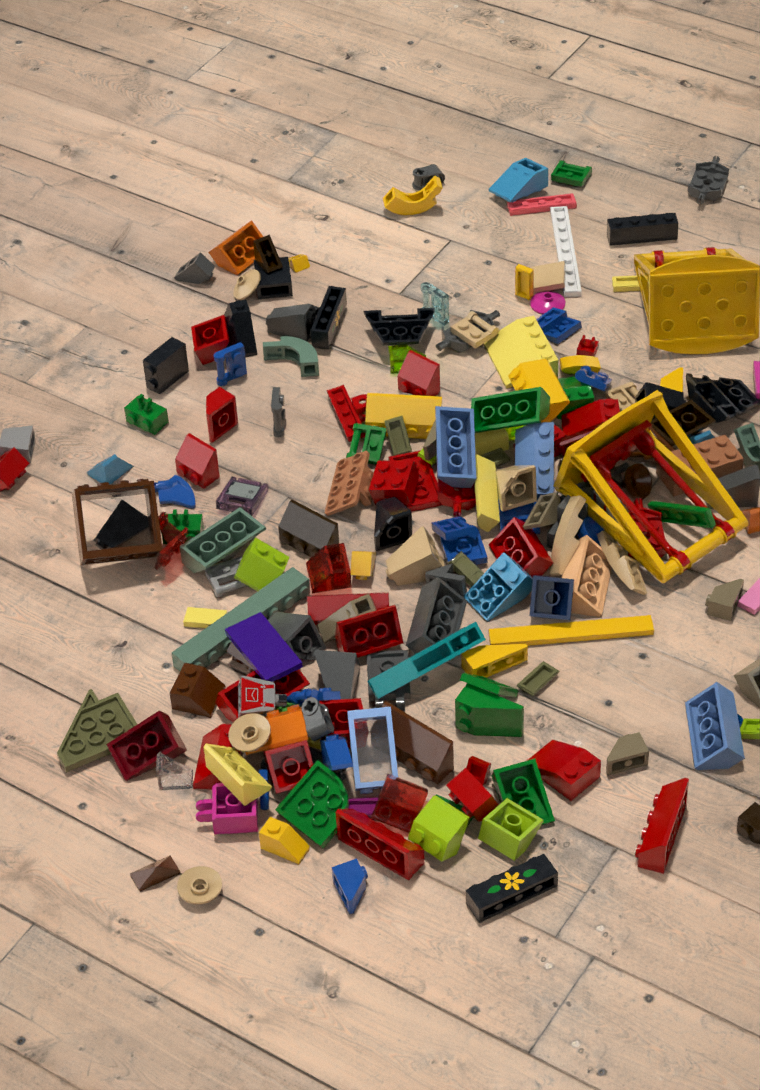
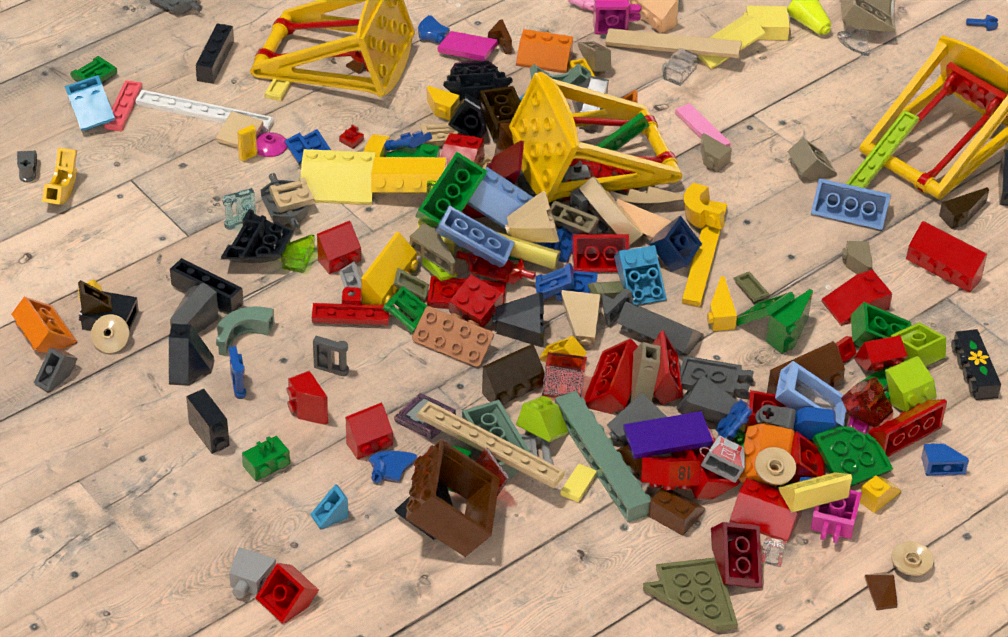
camera: 75 degrees left, 0 degrees up
(202, 536) = (500, 448): none -> tan tile
(210, 338) = (188, 374): red slope -> none
(223, 664) = (670, 472): none -> red brick
(426, 660) = (717, 335): teal slope -> none
(628, 601) = (696, 209): none -> yellow arch

